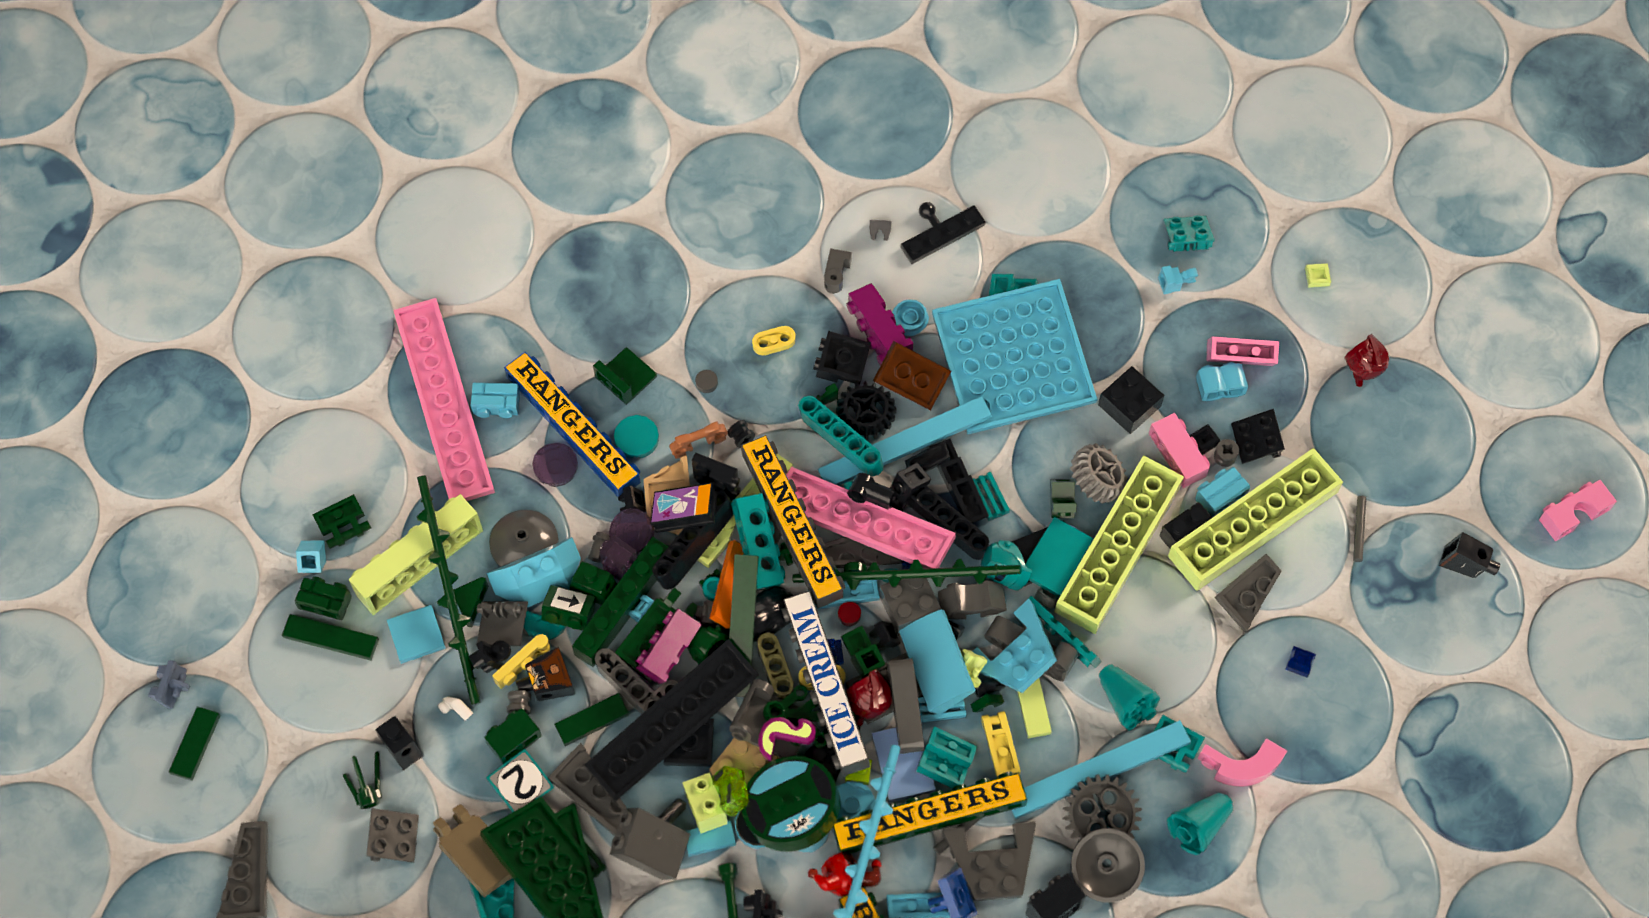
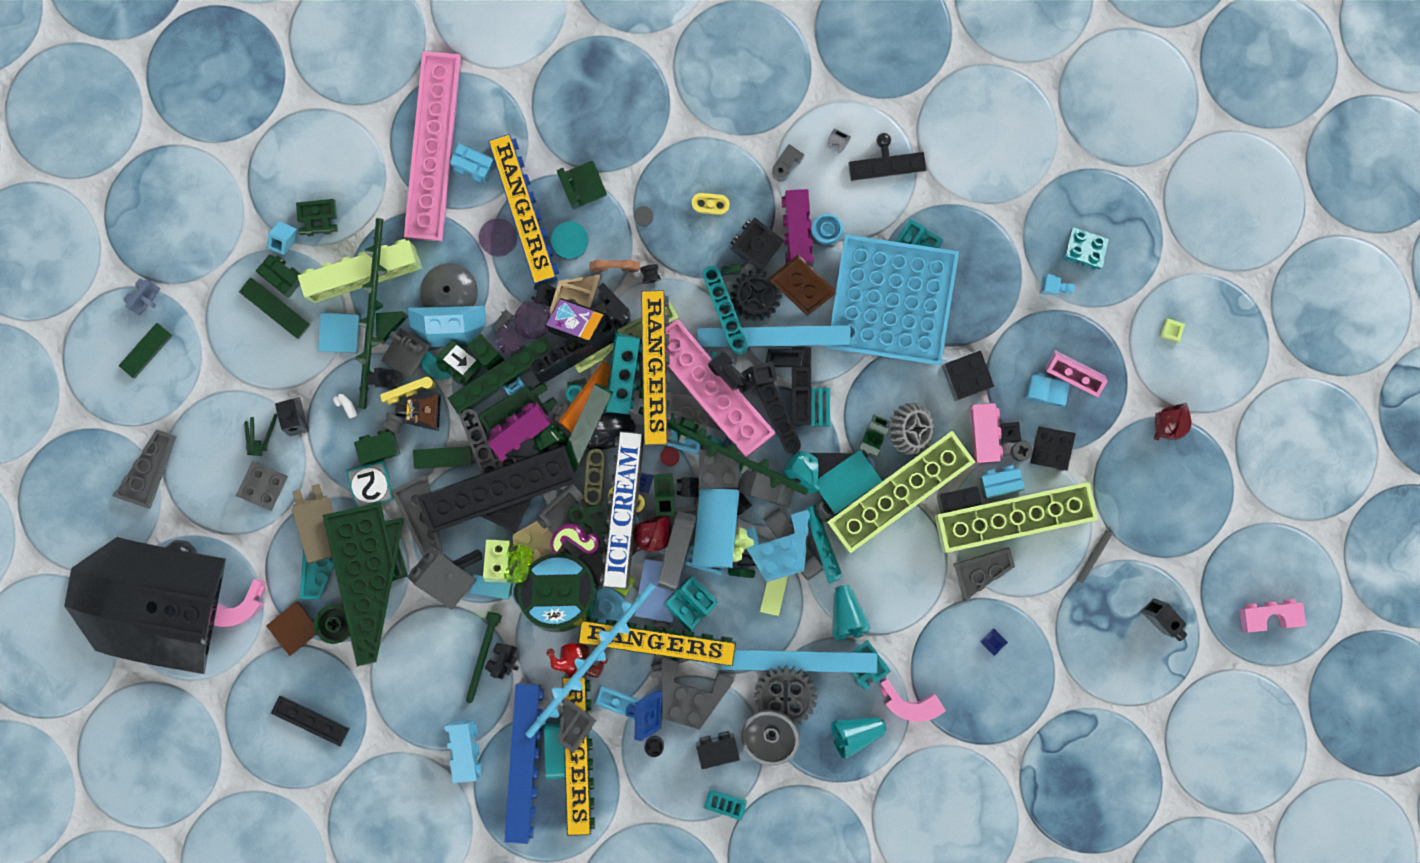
camera: 25 degrees right, 20 degrees up
(1000, 744) = (736, 610): light yellow plate -> none

